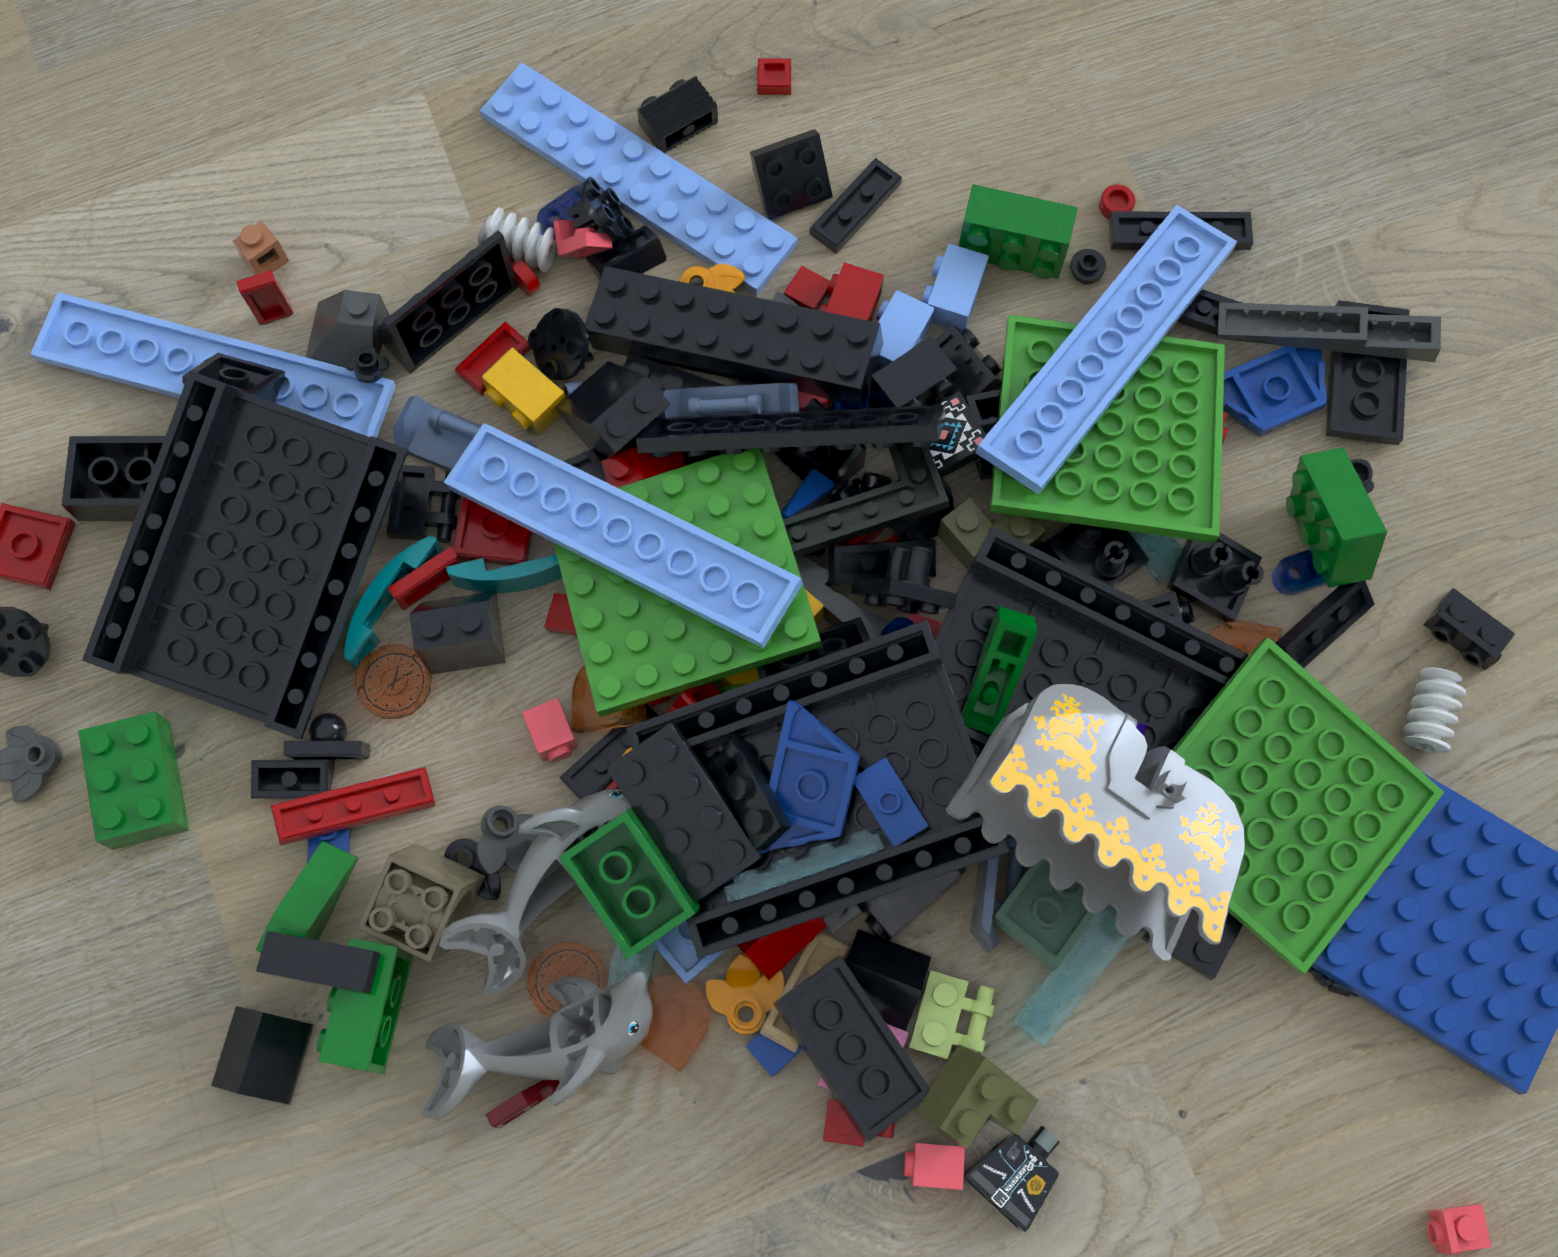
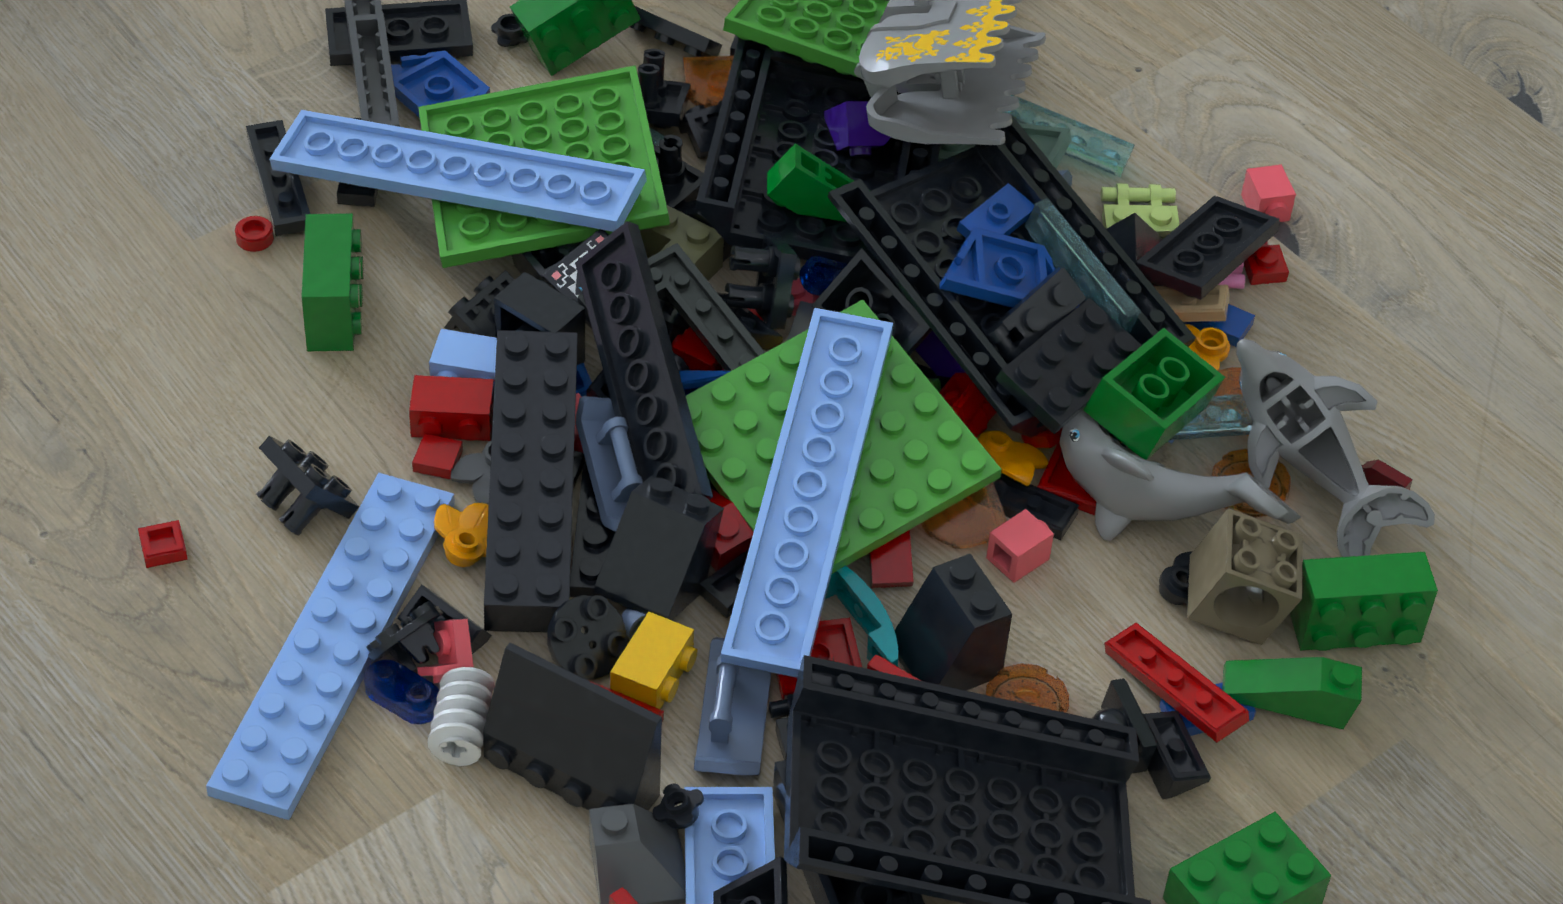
camera: 110 degrees left, 25 degrees down
(262, 1055) = (1450, 701): black slope -> none
(318, 962) = (1351, 614): black tile -> none
(502, 847) = (1138, 557): dark grey plate -> none
(677, 114) = (245, 611): black brick -> none
(855, 205) = (329, 440): black tile -> none
(956, 285) = (400, 329): light blue brick -> none
(969, 1094) = (1208, 168): olive brick -> none
(1016, 1176) = (1246, 142): torso -> none
(1308, 577) = (619, 53): clear blue plate -> none

